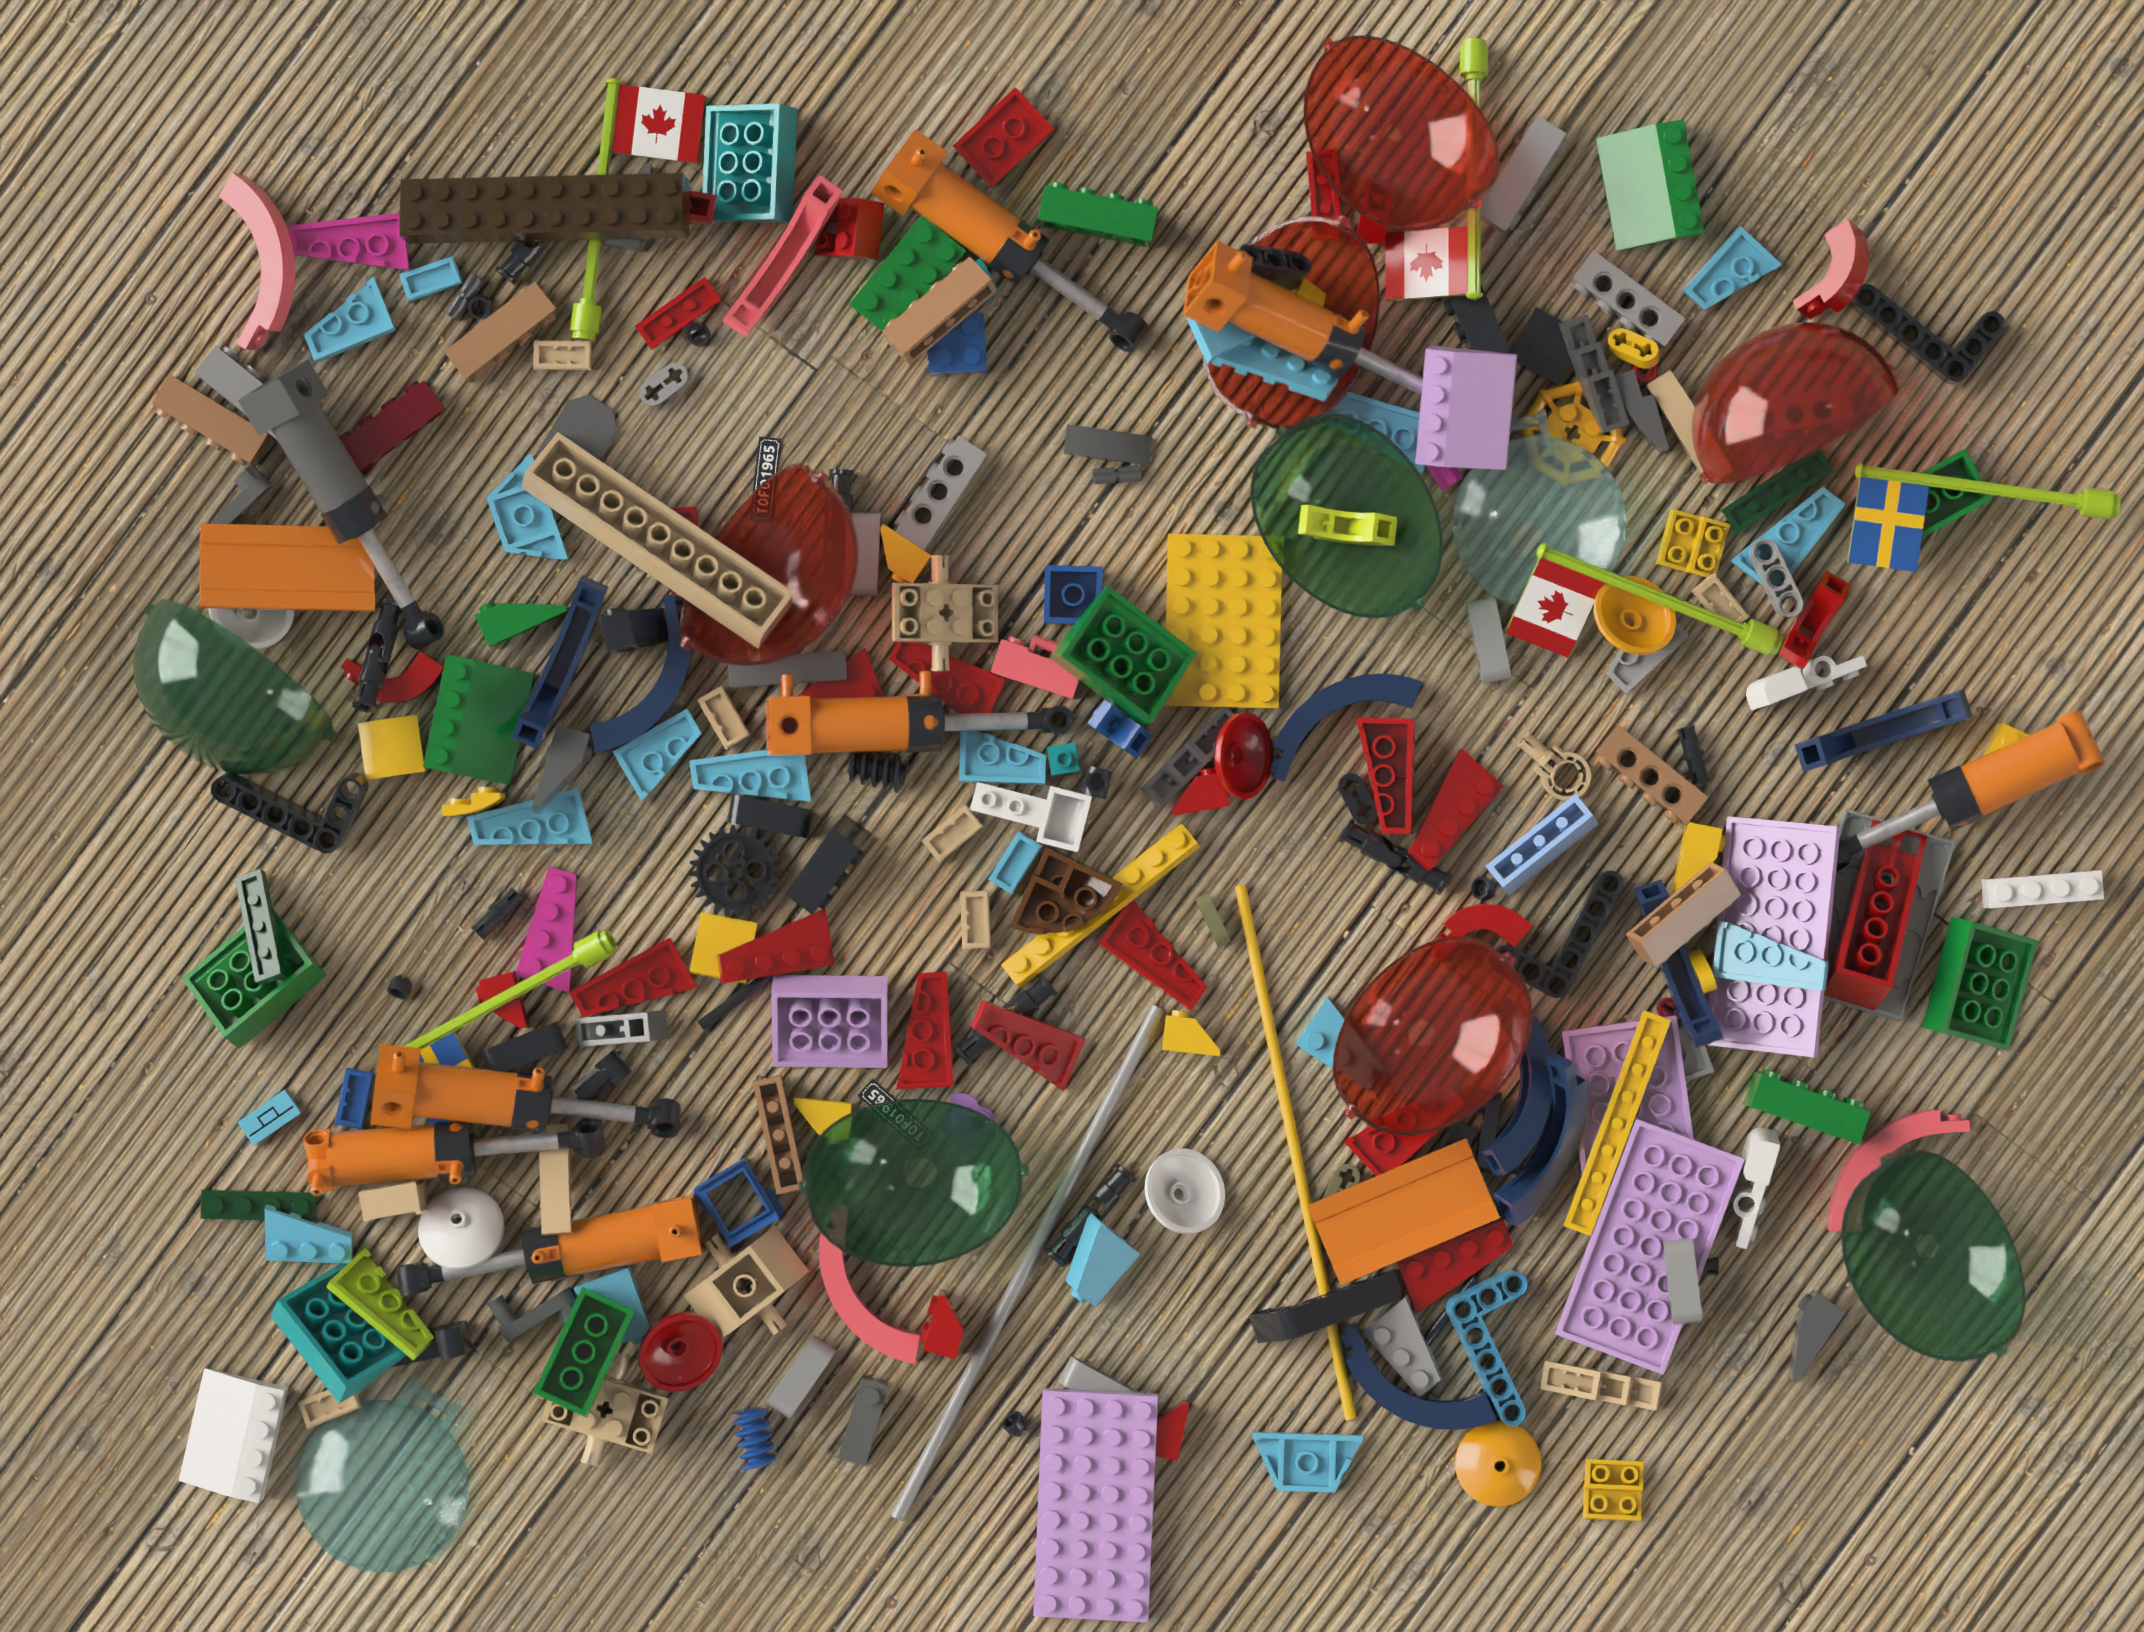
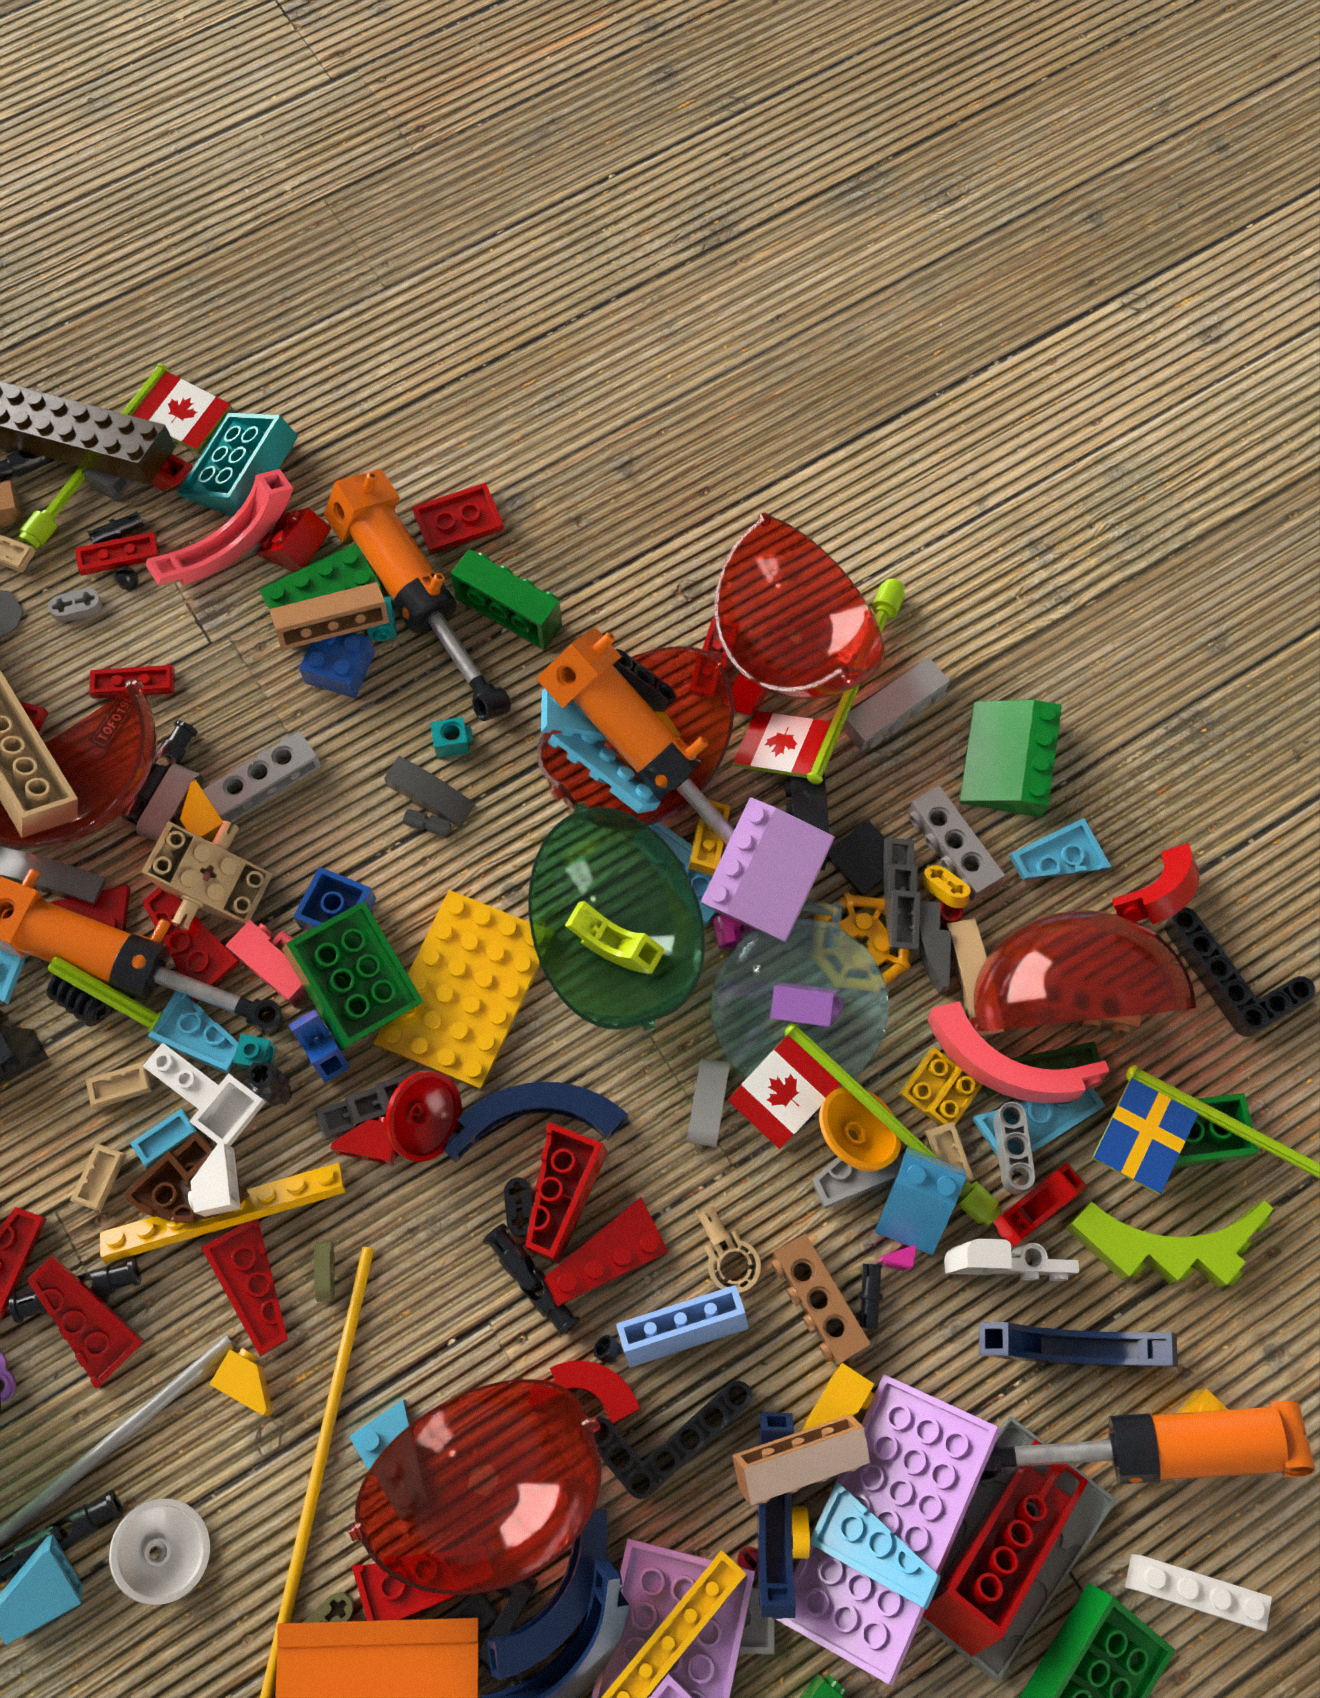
camera: 25 degrees right, 20 degrees down
(662, 286) = (116, 528): none -> black pin
(762, 443) = (111, 682): none -> red tile
(908, 760) = (104, 992): none -> lime axle
(1094, 888) = (216, 1184): none -> white slope
(1095, 390) = (445, 728): none -> teal brick
(1395, 399) = (707, 845): none -> yellow plate
(1546, 520) = (806, 1004): none -> medium lavender piece
(1708, 713) = (900, 1259): none -> dark pink slope
(1709, 656) = (921, 1201): none -> dark azure slope
(1740, 514) = (1002, 1073): none -> coral arch
(1979, 601) = (1125, 1247): none -> lime arch

